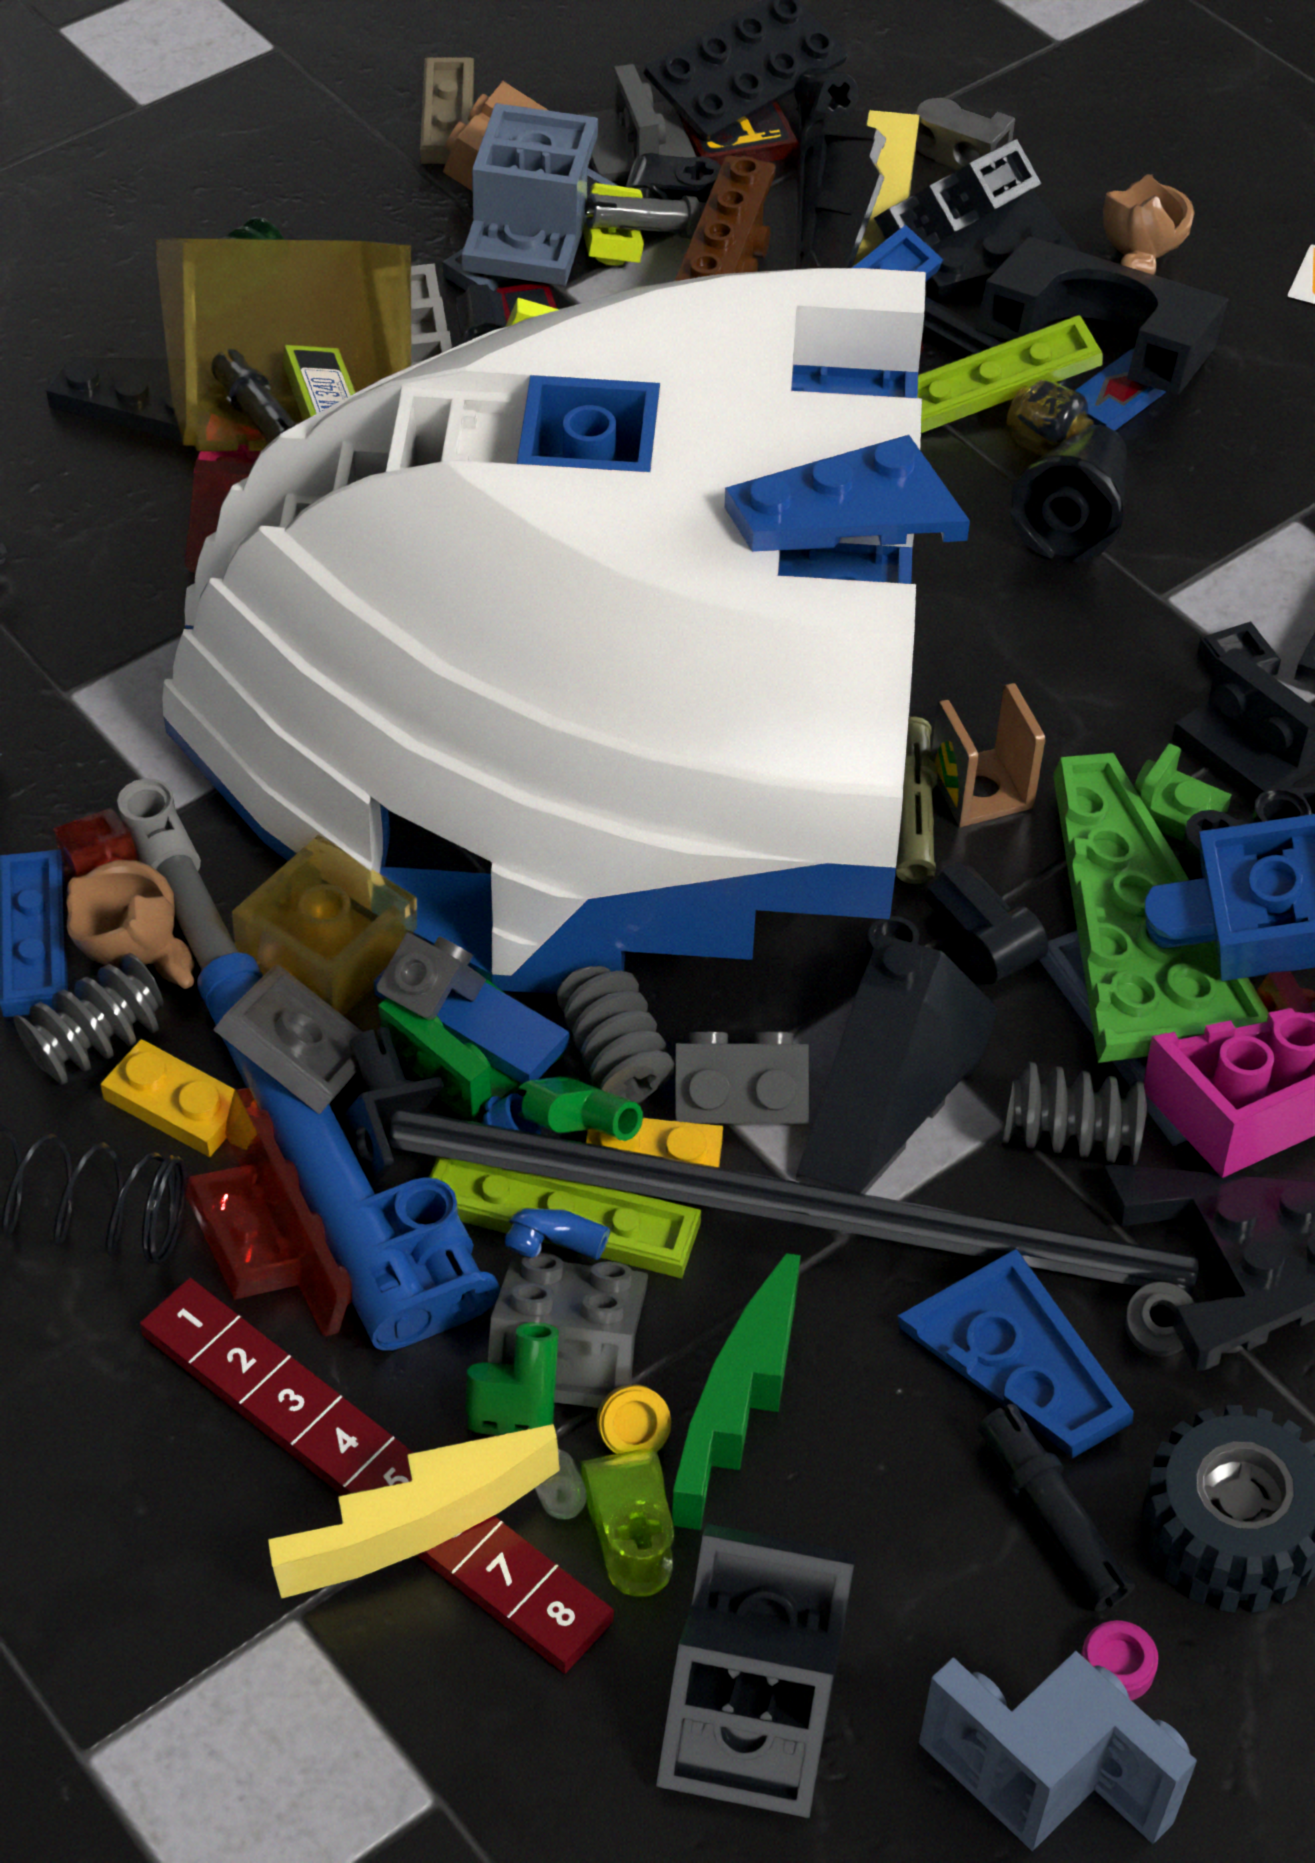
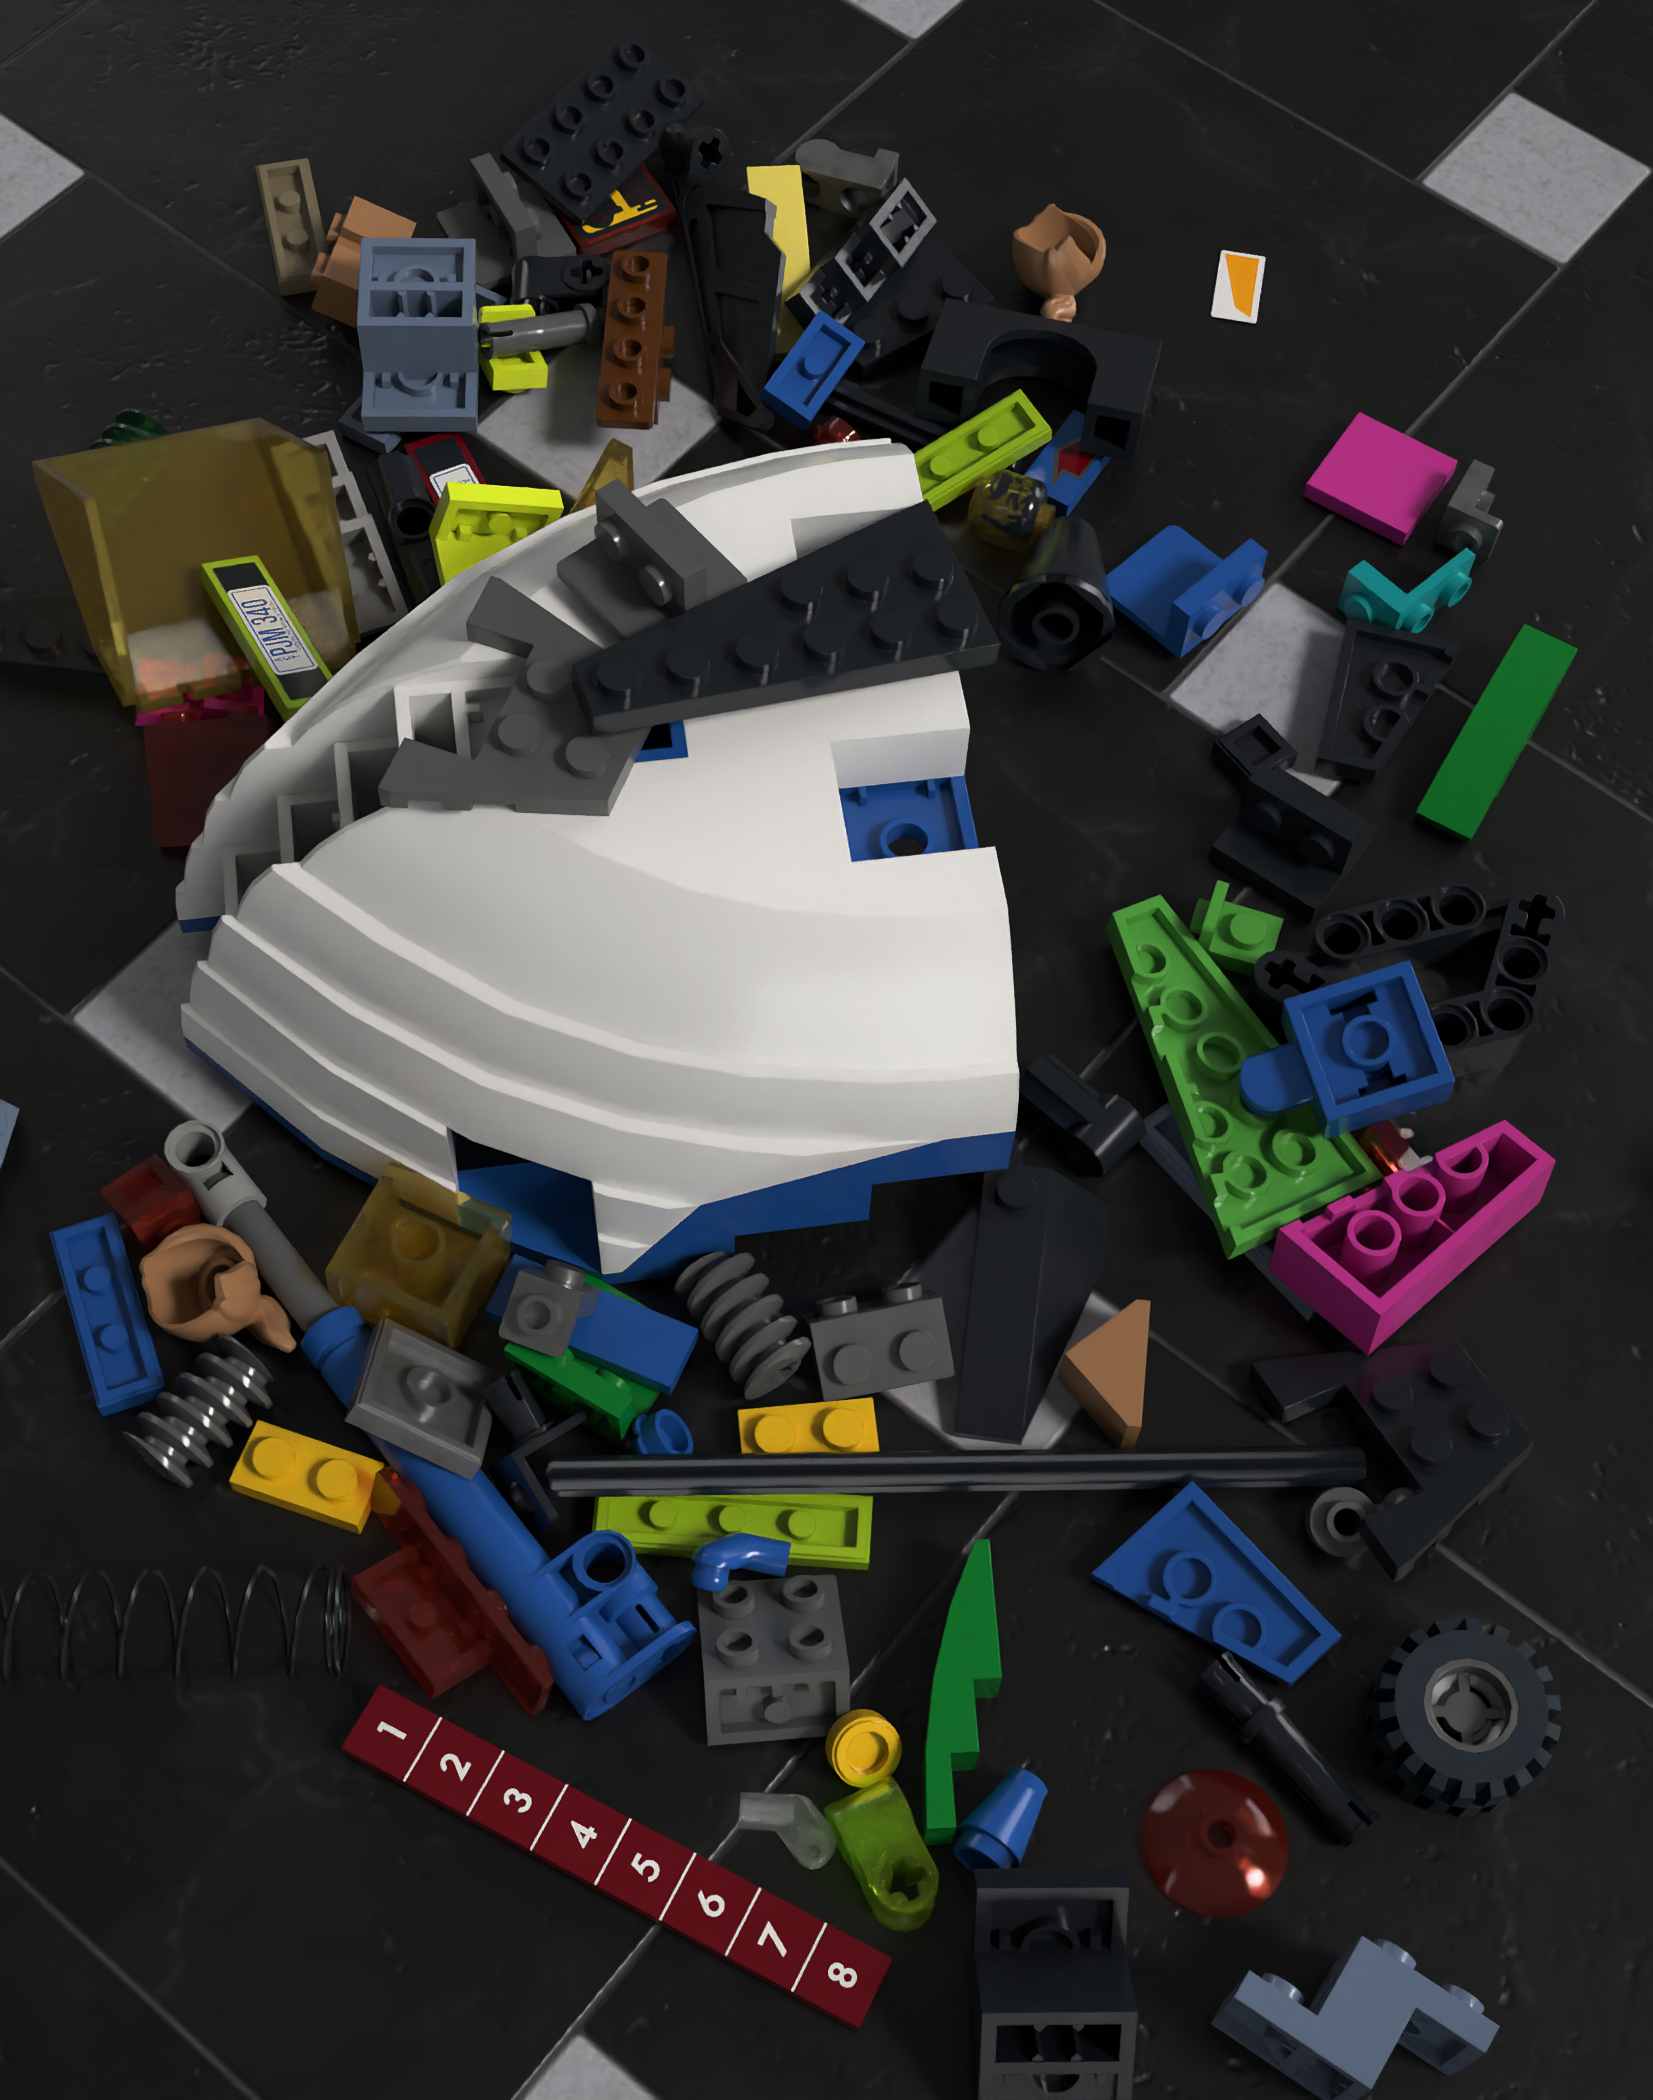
camera: 15 degrees left, 10 degrees up
(251, 395) = (181, 633): black pin -> none
(447, 1496) = (703, 1884): light yellow slope -> none
(518, 1391) = (741, 1745): green piece -> none
(534, 437) = (540, 741): none -> dark grey wing
(574, 1106) = (719, 1413): green piece -> none
(652, 317) = (644, 564): none -> dark grey bracket
(757, 1506) = (1001, 1824): none -> blue cone
(820, 380) = (832, 622): none -> black wing
(863, 492) = (903, 756): blue wing -> none
(957, 1609) = (1196, 1872): none -> clear red dish
(958, 1141) = (1109, 1373): none -> medium nougat slope
(1011, 764) = (1065, 919): medium nougat piece -> none
(1077, 1112) = (1217, 1313): dark grey piece -> none
(1125, 1652) = (1379, 1896): dark pink tile -> none
(1203, 508) = (1184, 589): none -> blue bracket

